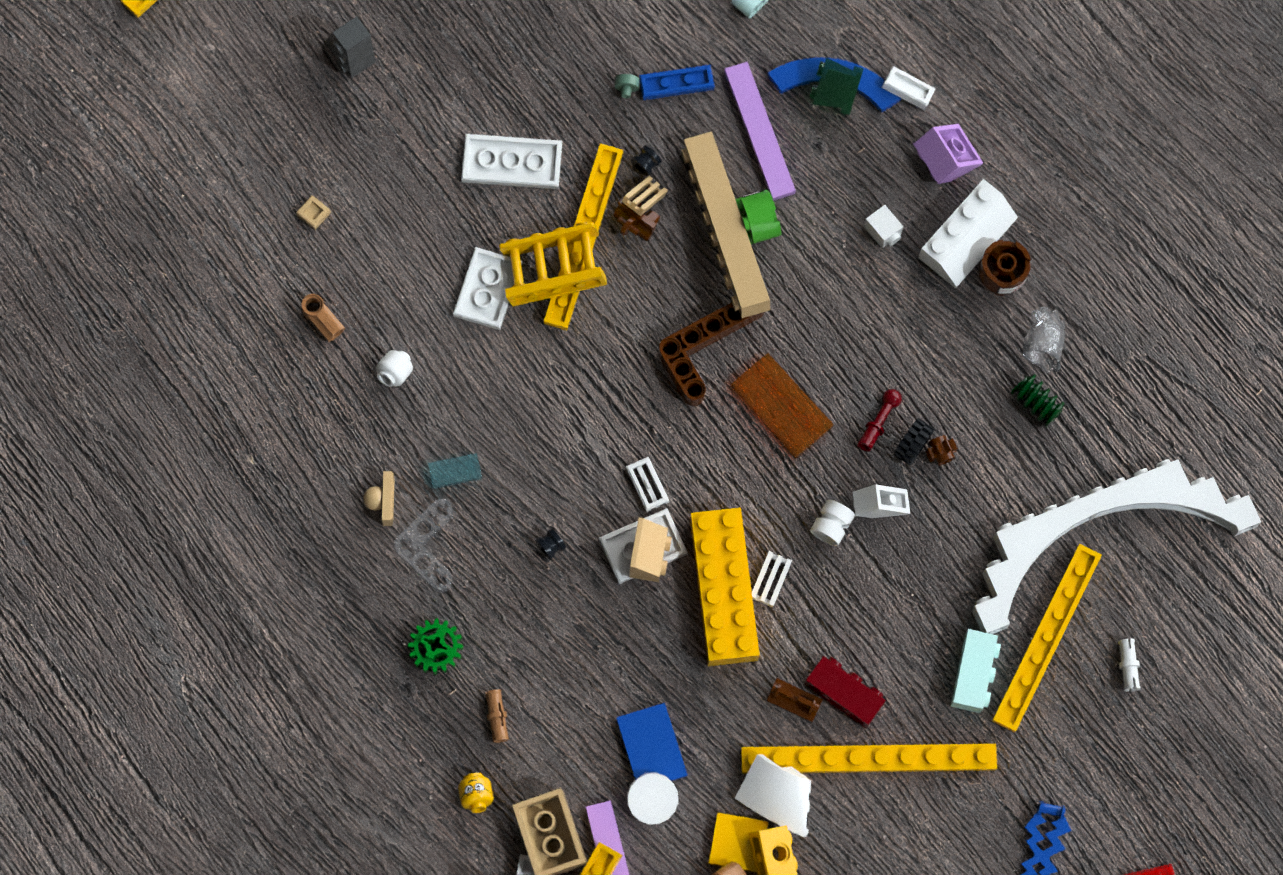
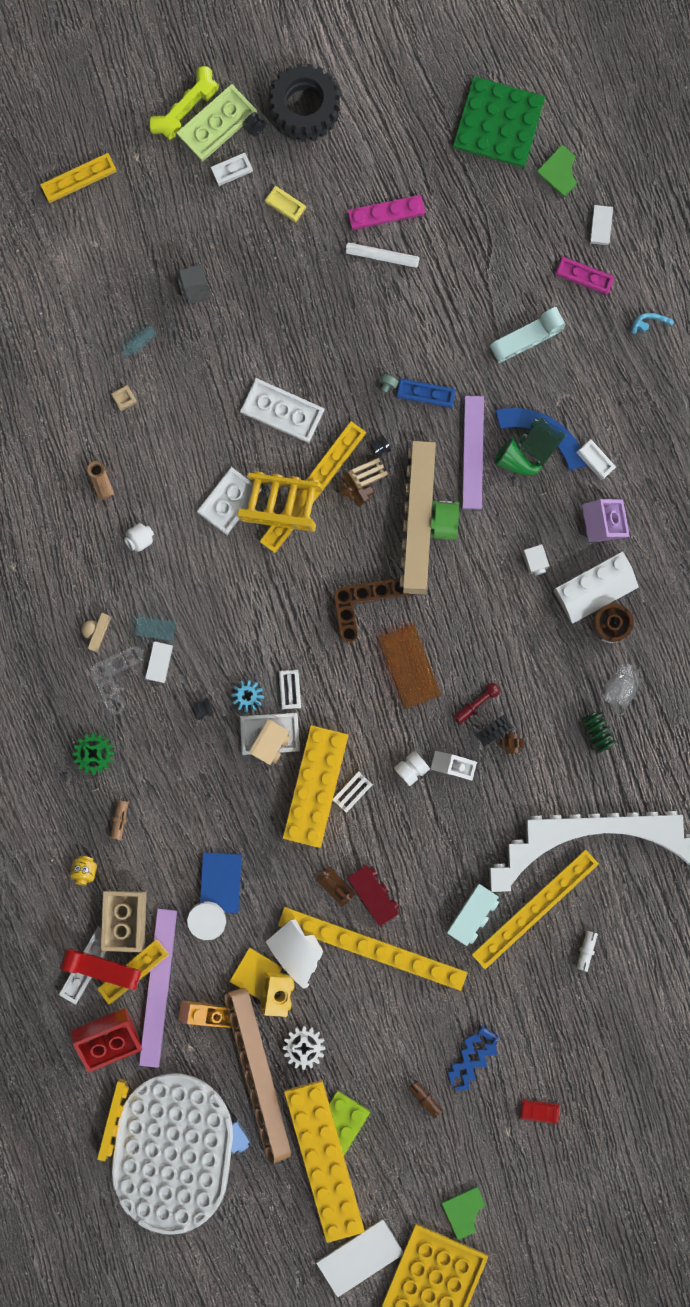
camera: 25 degrees right, 10 degrees up
(308, 138) = (140, 340): none -> clear light blue cylinder
(474, 508) = (159, 662): none -> white tile
(599, 518) = (241, 693): none -> medium azure gear
(810, 121) = (512, 459): none -> green hat

